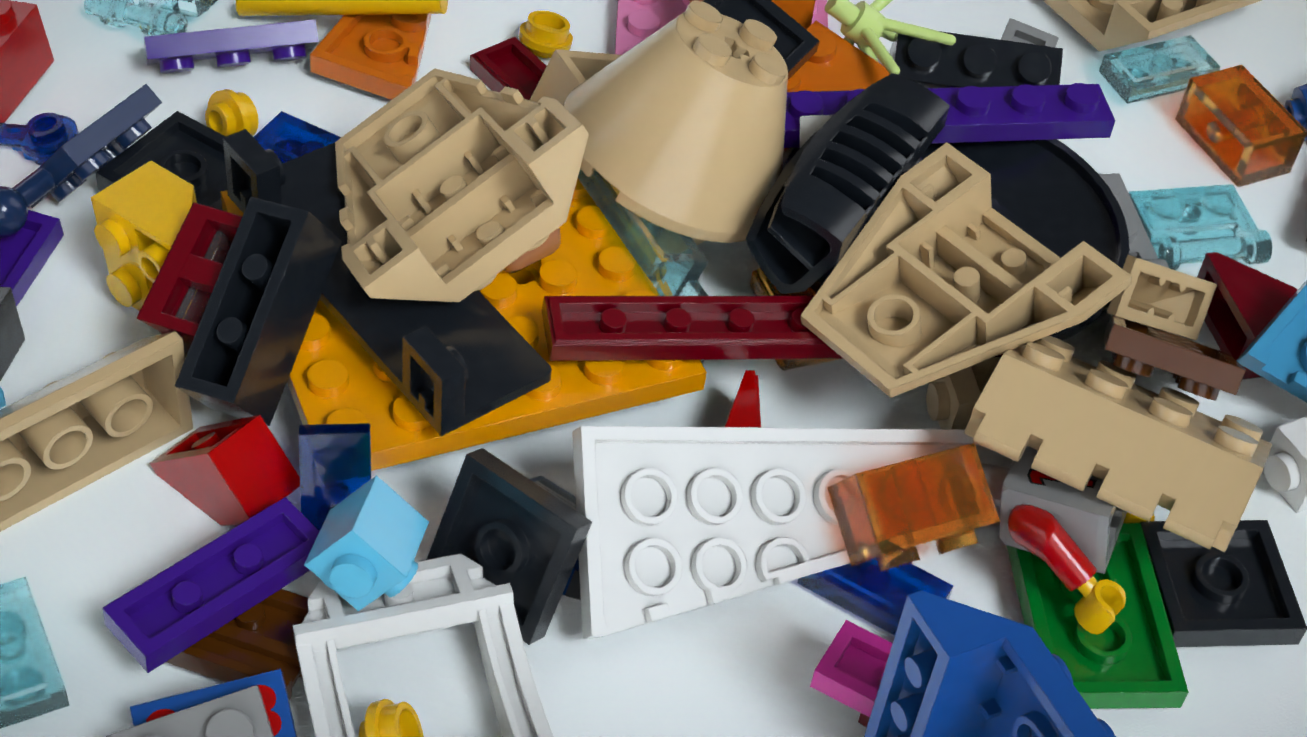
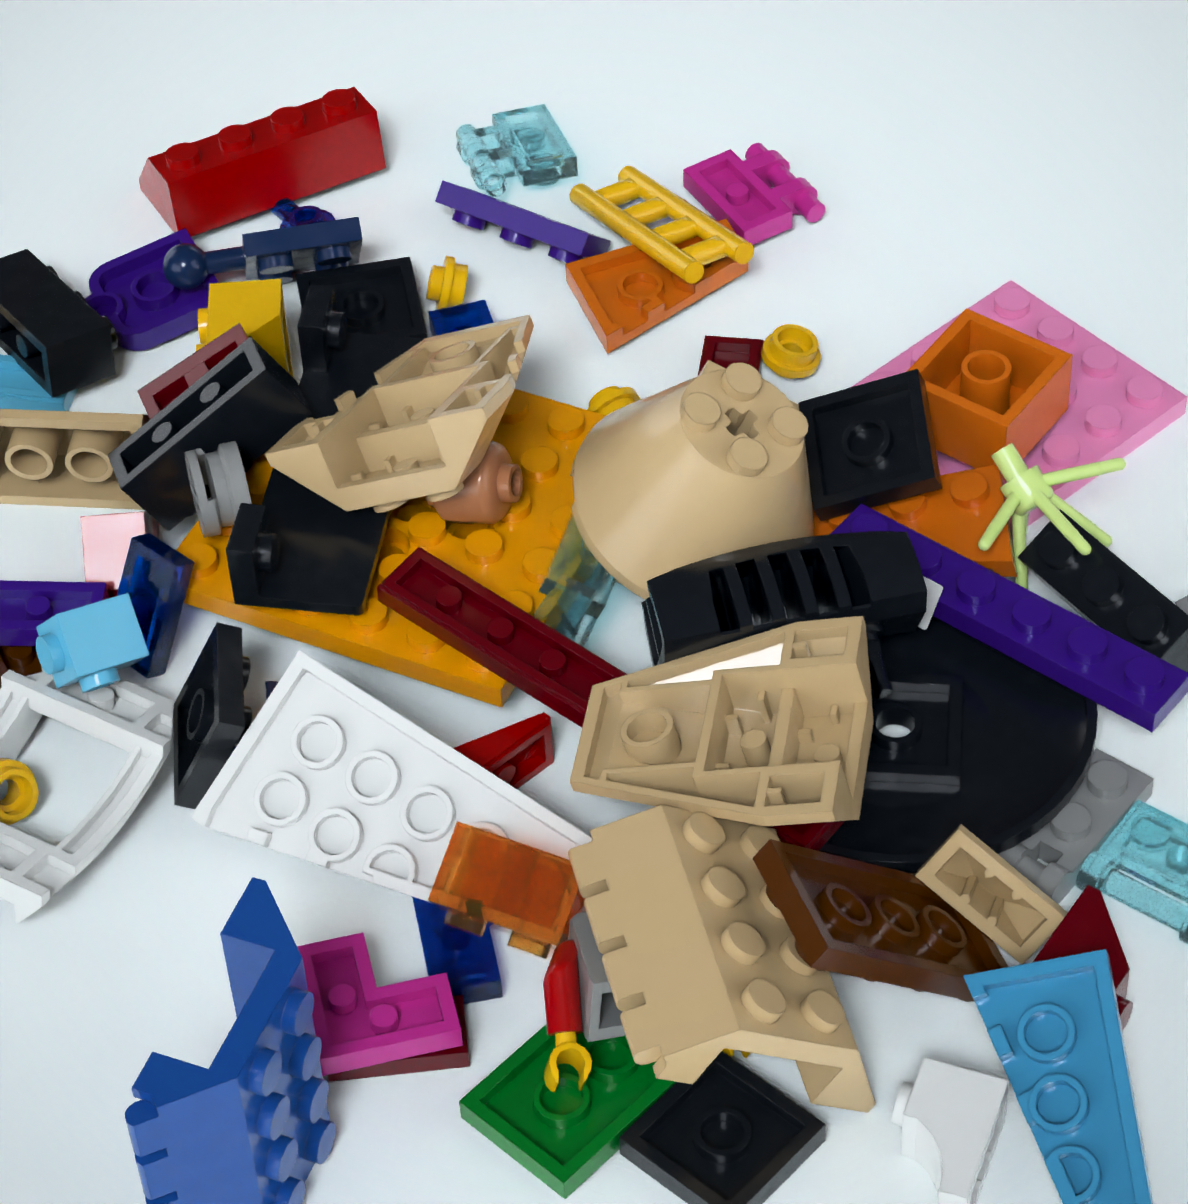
camera: 55 degrees right, 0 degrees up
(332, 344) = (226, 483): none -> light grey wheel

